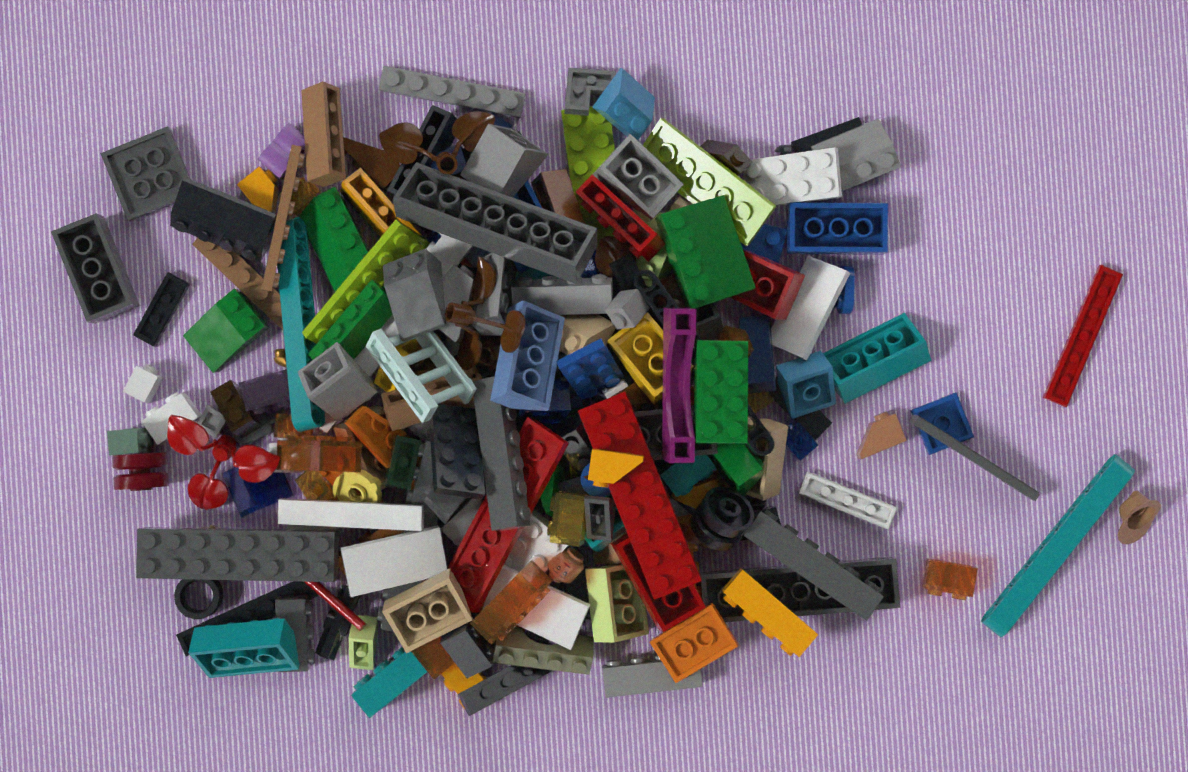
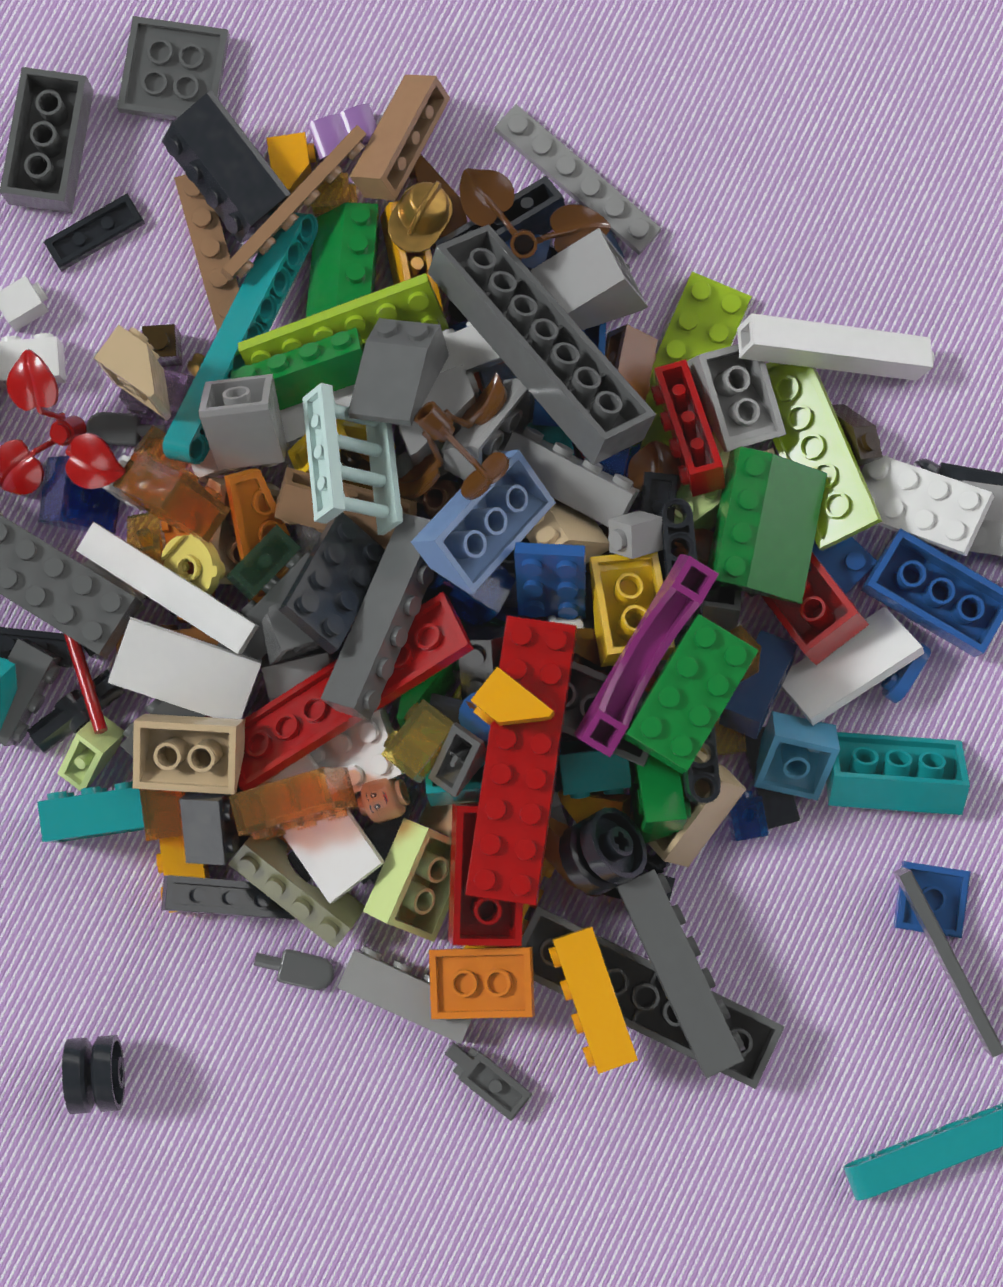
camera: 30 degrees right, 5 degrees down
(212, 421) = (74, 393): light grey plate -> none
(225, 330) = (154, 294): green slope -> none
(232, 407) = (104, 405): dark brown brick -> none
(247, 388) = (135, 368): none -> tan slope
(251, 358) = (166, 343): none -> dark brown brick
(367, 179) = (420, 217): none -> pearl gold piece
(574, 699) = (298, 969): none -> dark grey piece
(582, 84) = (740, 256): dark grey plate -> none
(626, 105) = (771, 294): dark azure slope -> none
(682, 110) = (834, 347): none -> white brick
(732, 698) = (488, 1080): none -> dark grey hinge
(847, 500) = (765, 924): white tile -> none
(881, 435) = (851, 869): nougat slope -> none
(949, 578) = (835, 1091): clear orange brick -> none

